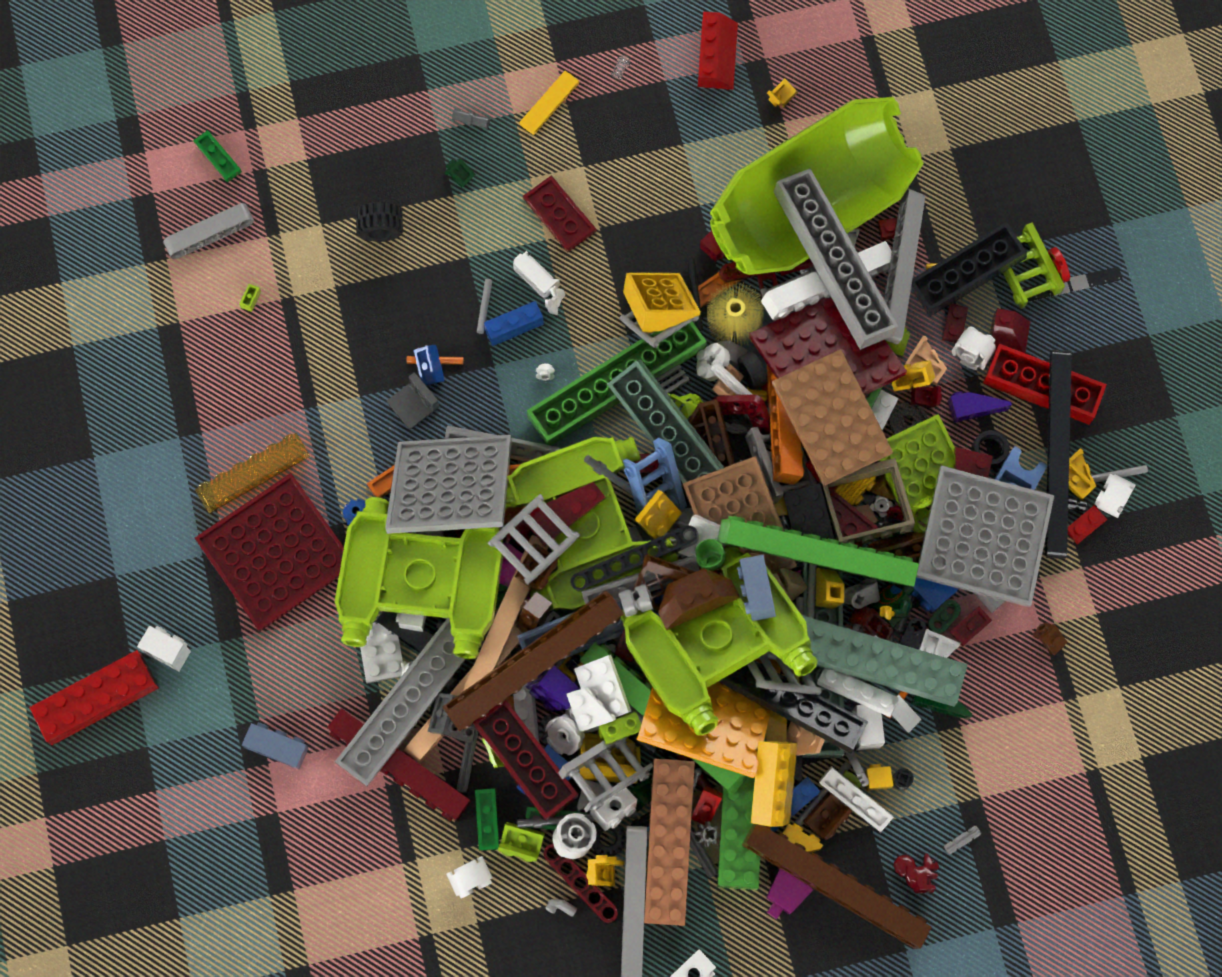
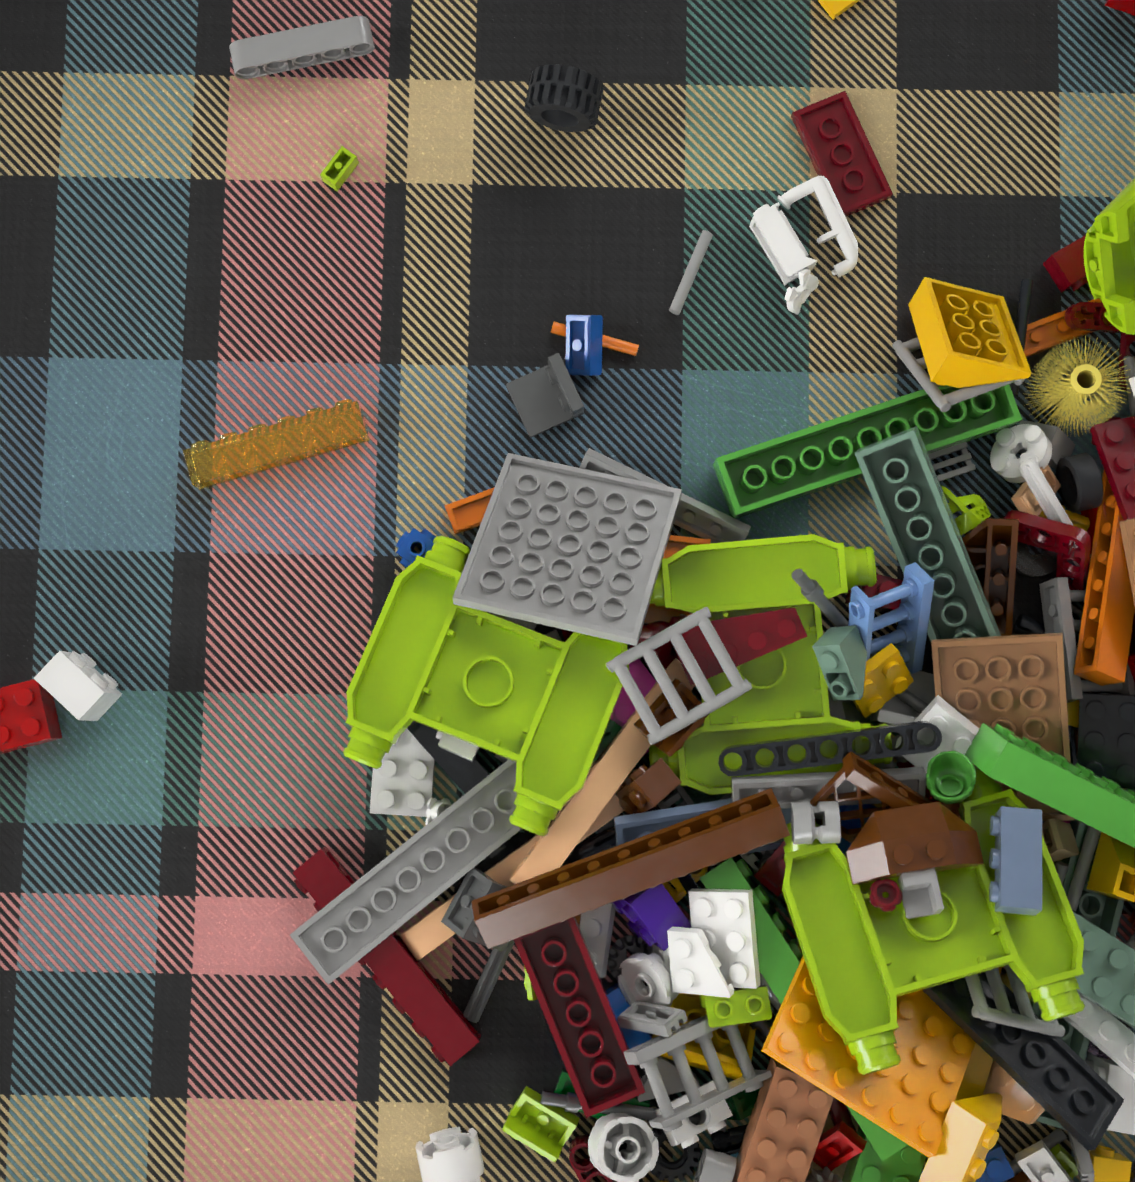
camera: 15 degrees right, 10 degrees up
(273, 551) = (280, 575): dark red plate -> none
(275, 745) = (210, 875): sand blue brick -> none
(459, 172) = (705, 49): dark green bracket -> none
(487, 819) = (498, 1073): green plate -> none
(513, 323) = (729, 312): blue brick -> none
(545, 372) = (758, 401): white plate -> none
(569, 257) = (835, 217): none -> white piece
(571, 750) = (652, 1018): none -> light grey tile
(630, 506) = (842, 661): none -> sand green slope
(685, 623) = (889, 886): none -> dark red plate
(705, 621) = (920, 893): none -> light grey panel

